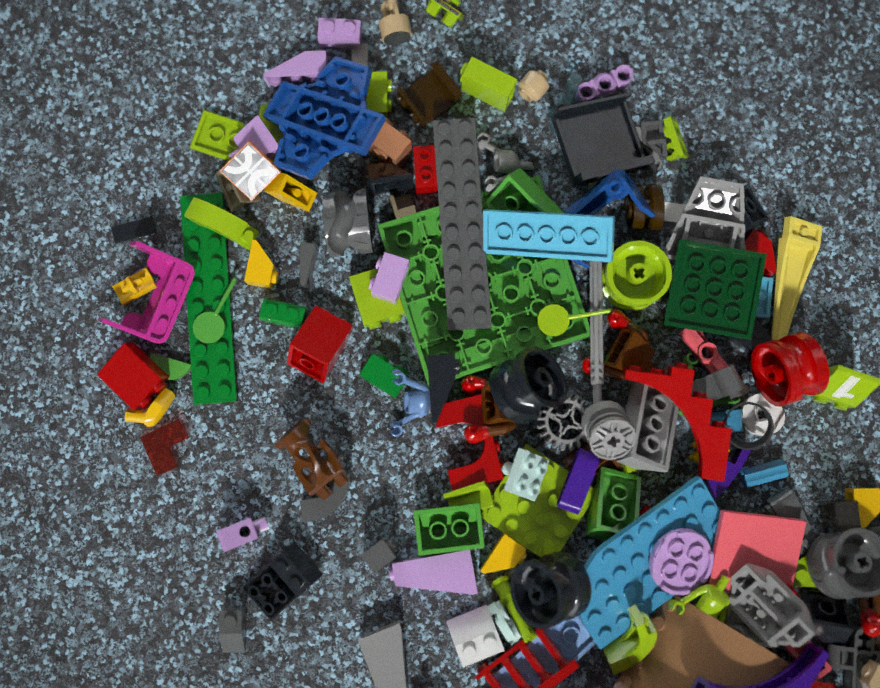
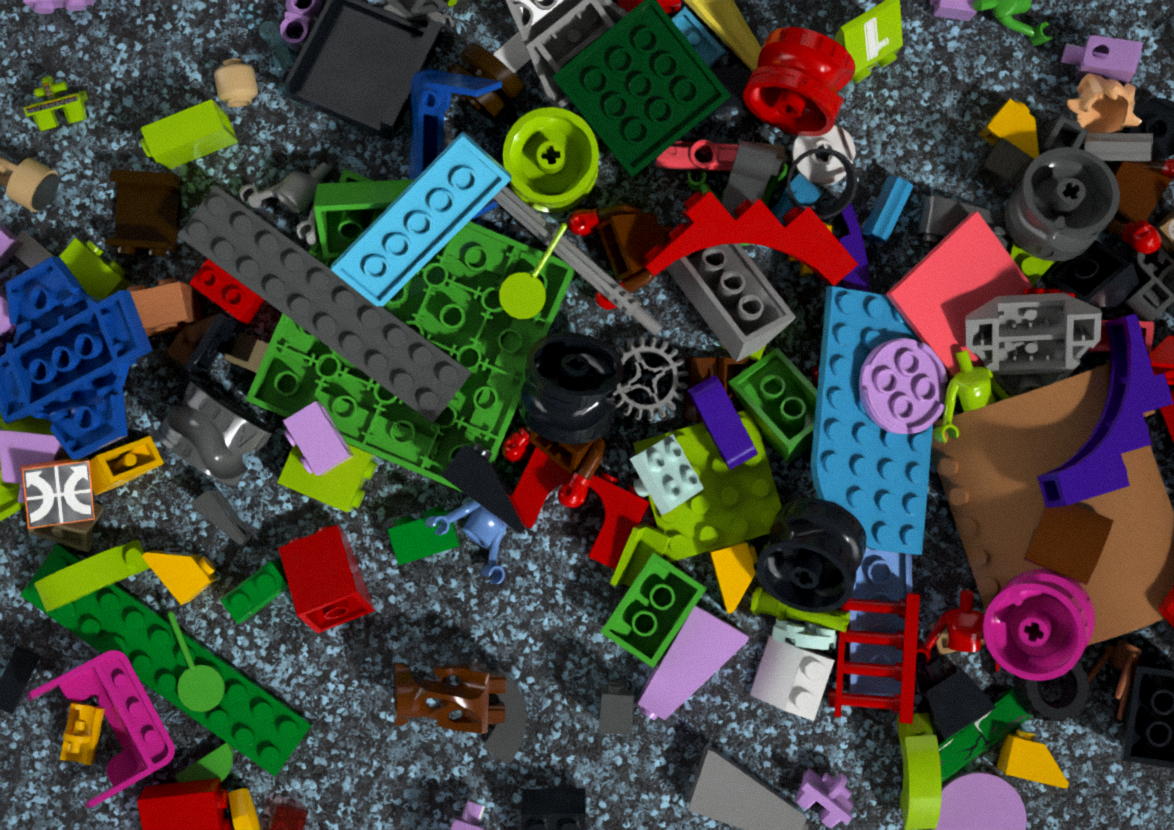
camera: 45 degrees left, 5 degrees up
(608, 430) = (694, 342): light grey wheel -> none
(633, 645) = (947, 515): lime arch -> none

